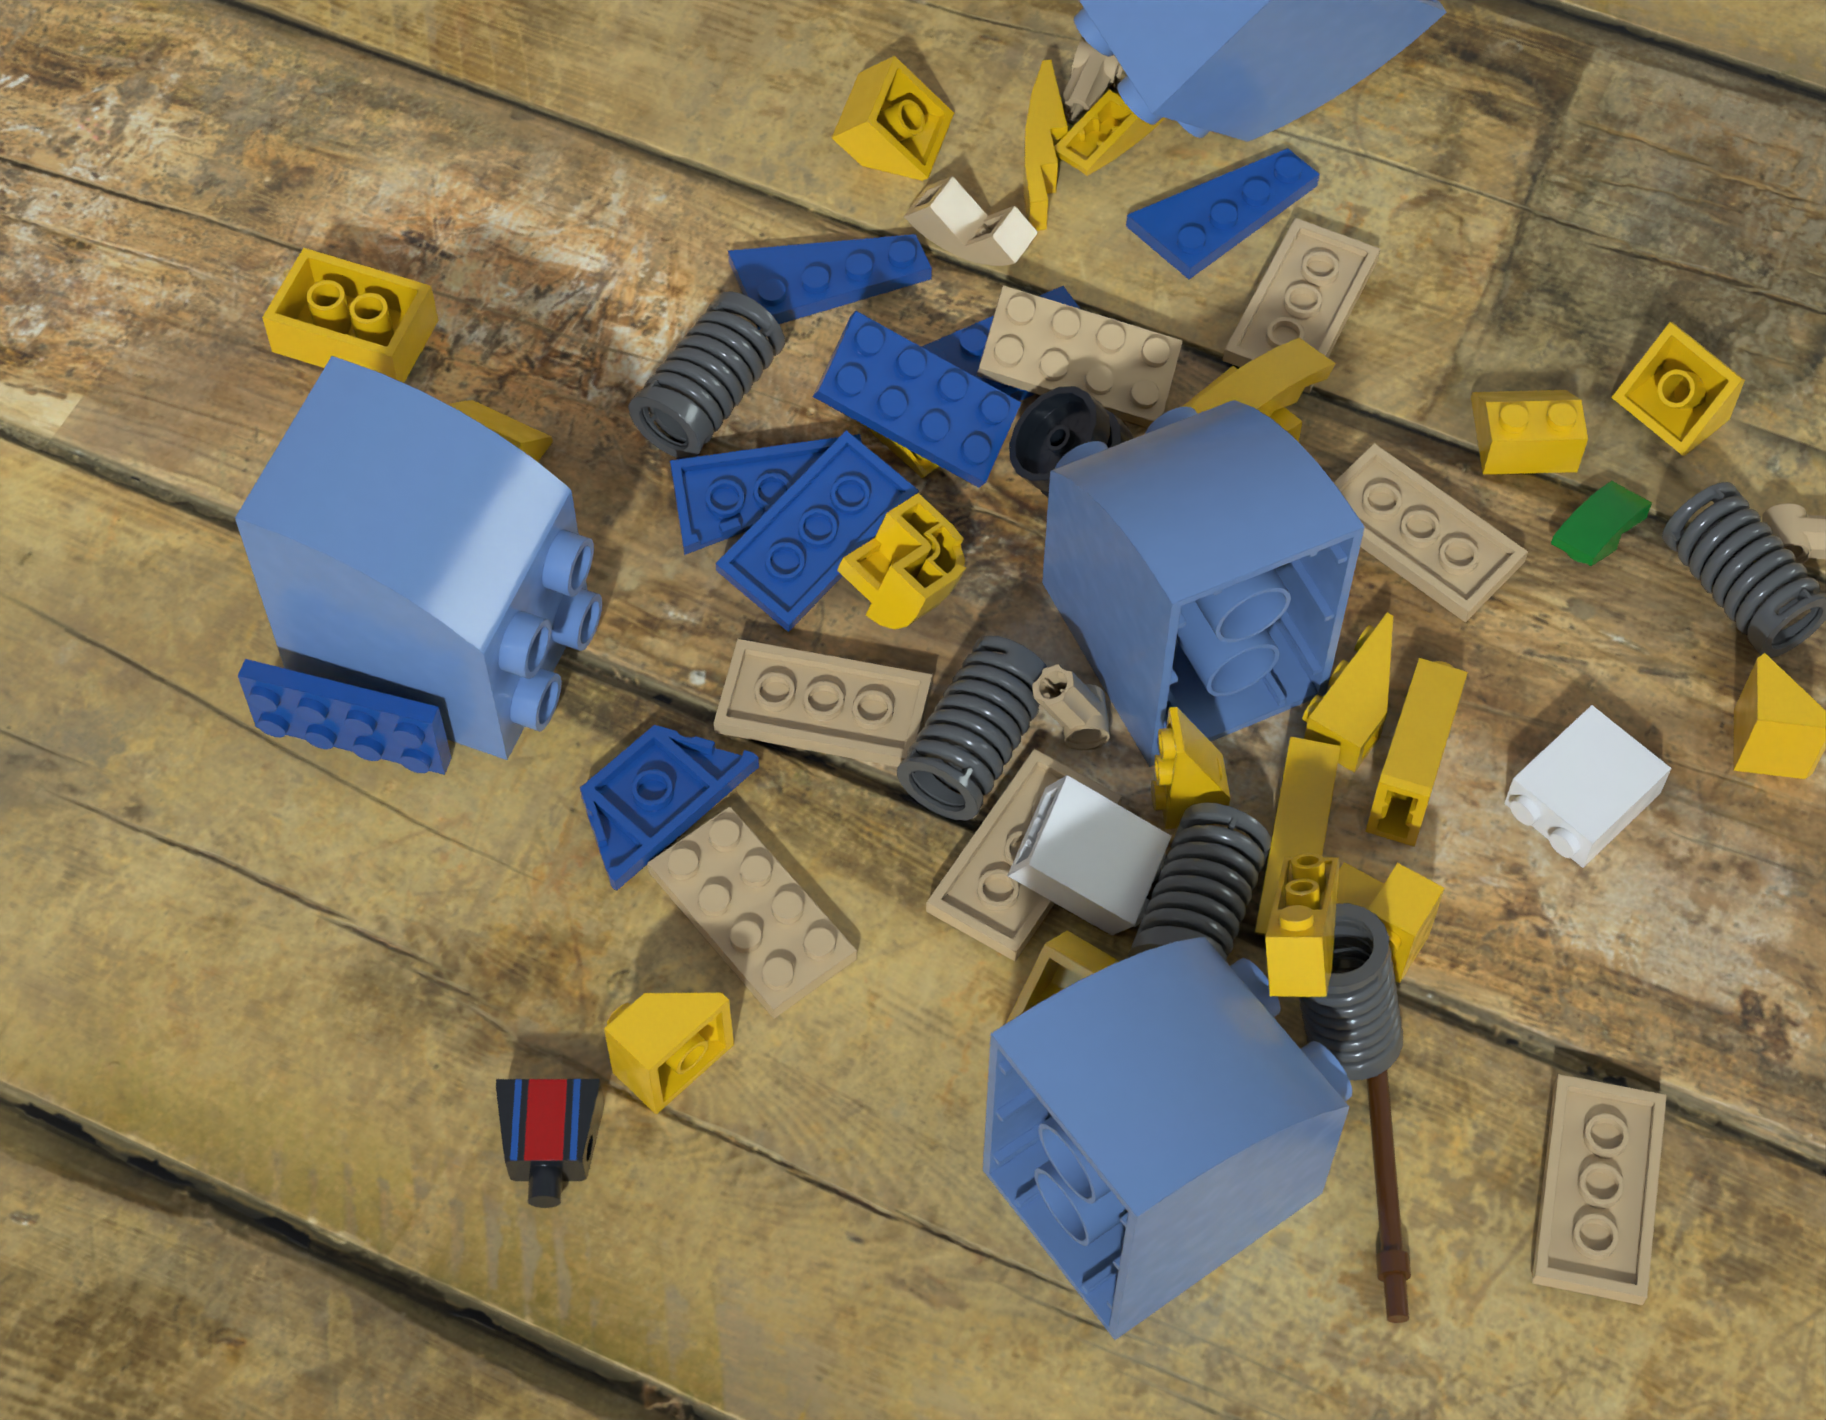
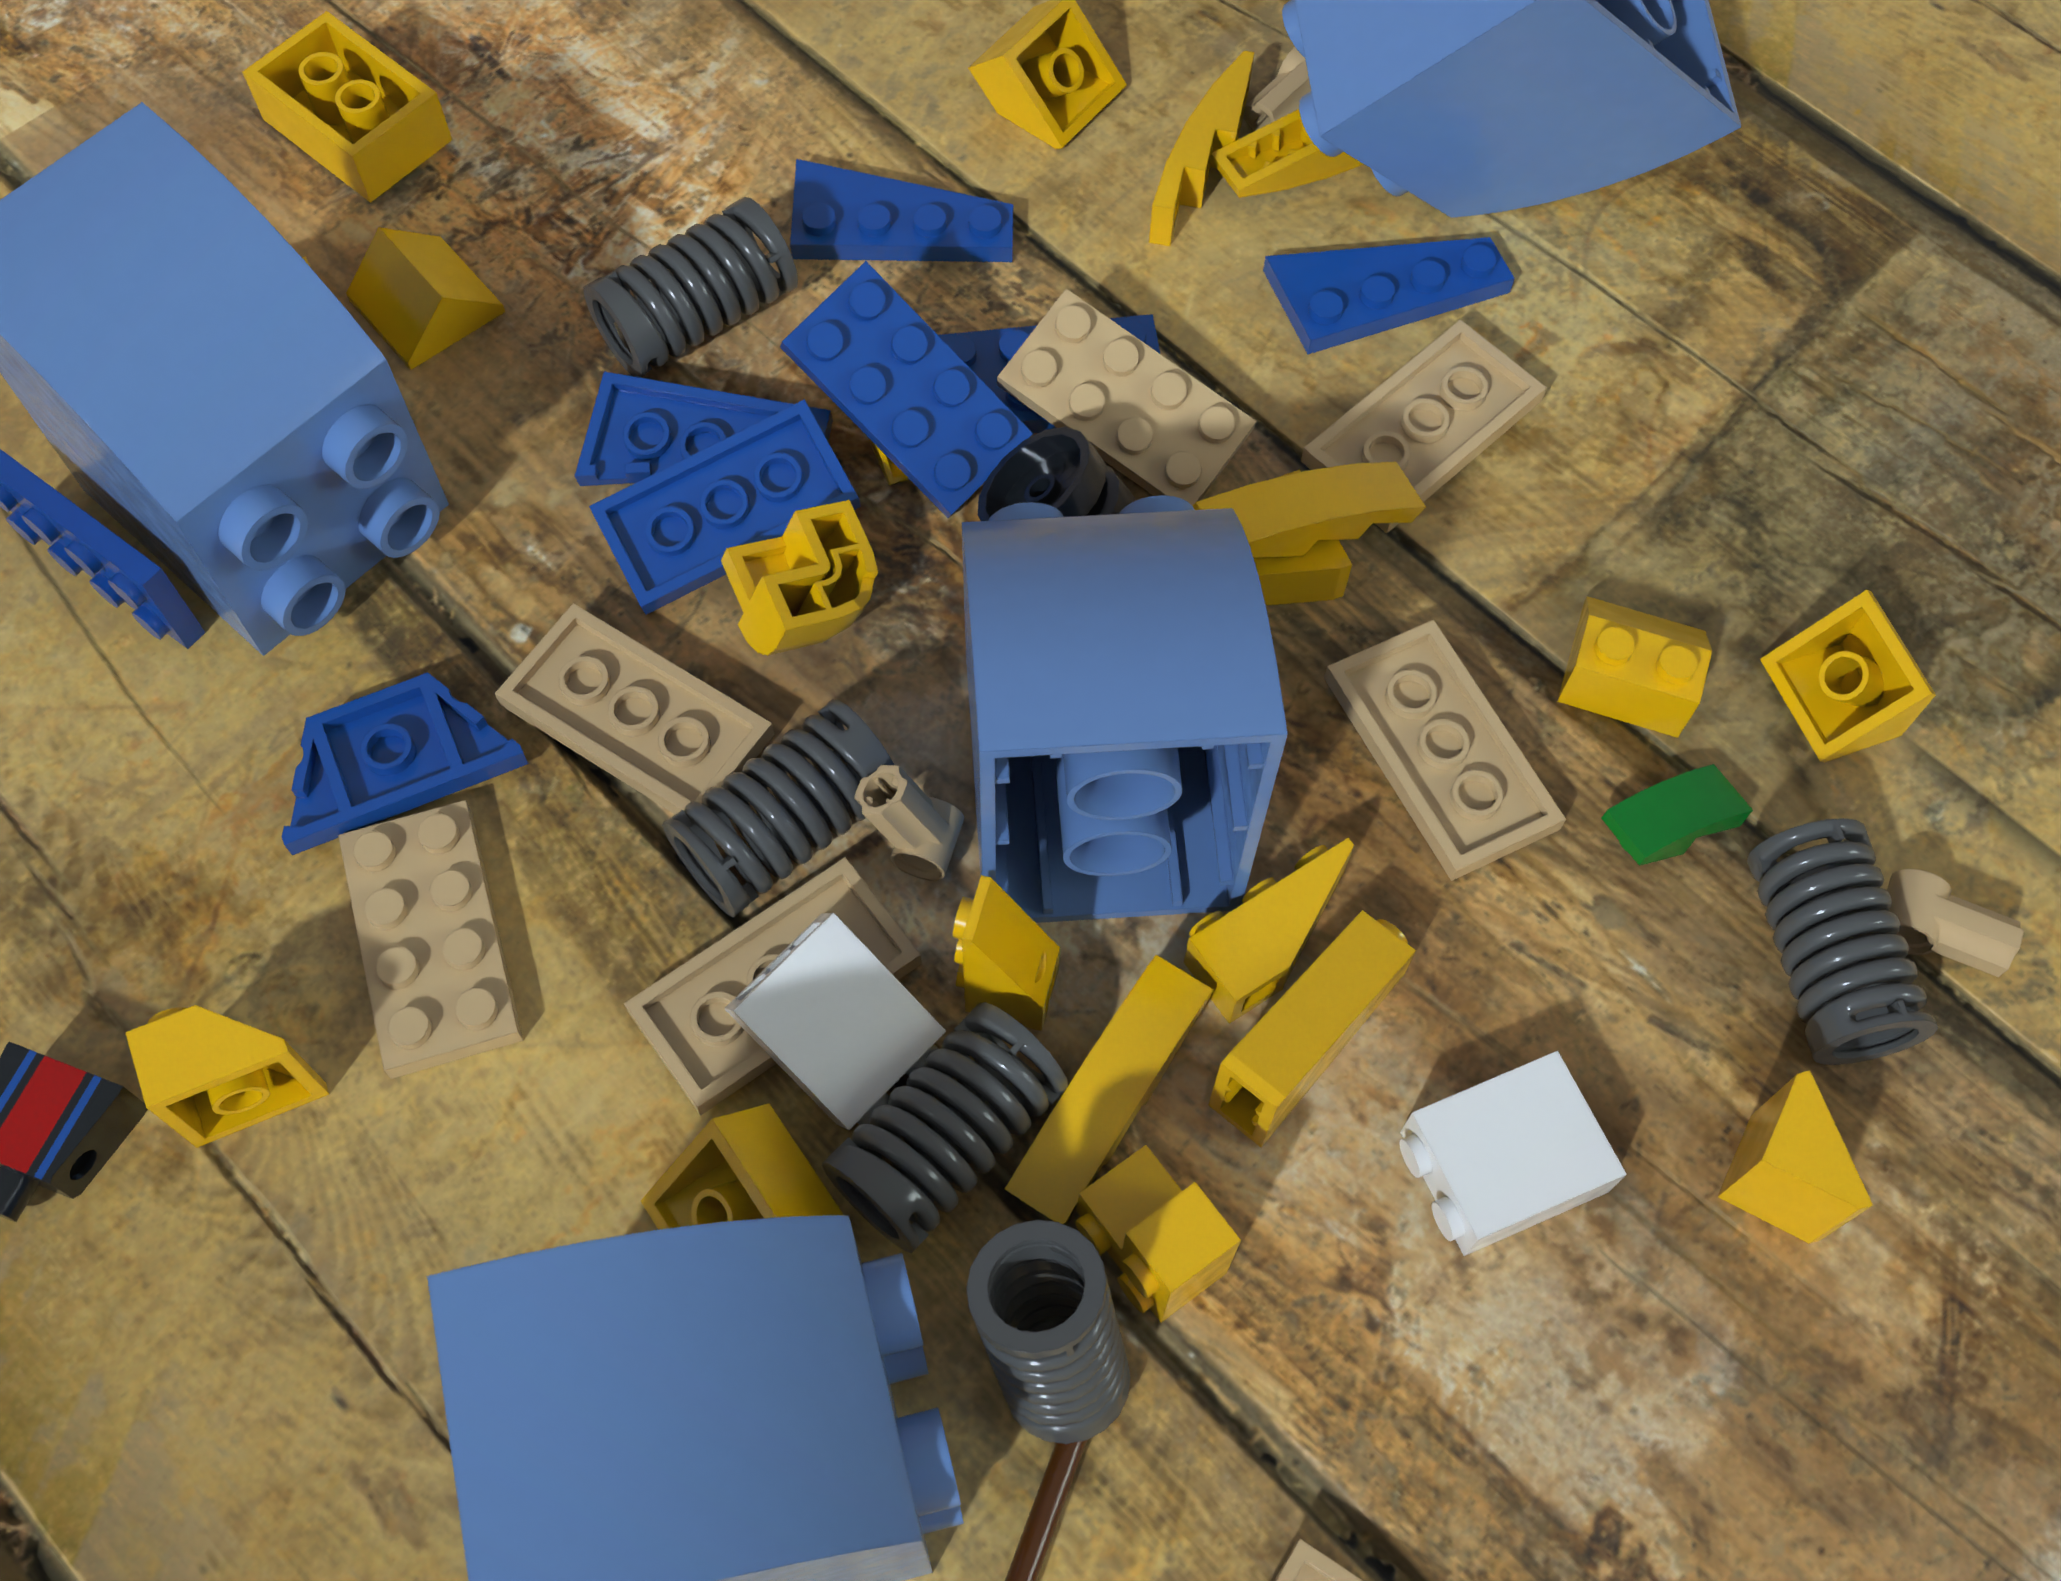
camera: 20 degrees right, 5 degrees up
(962, 228) = (1071, 215): tan brick -> none
(1303, 927) = (989, 1246): yellow slope -> none

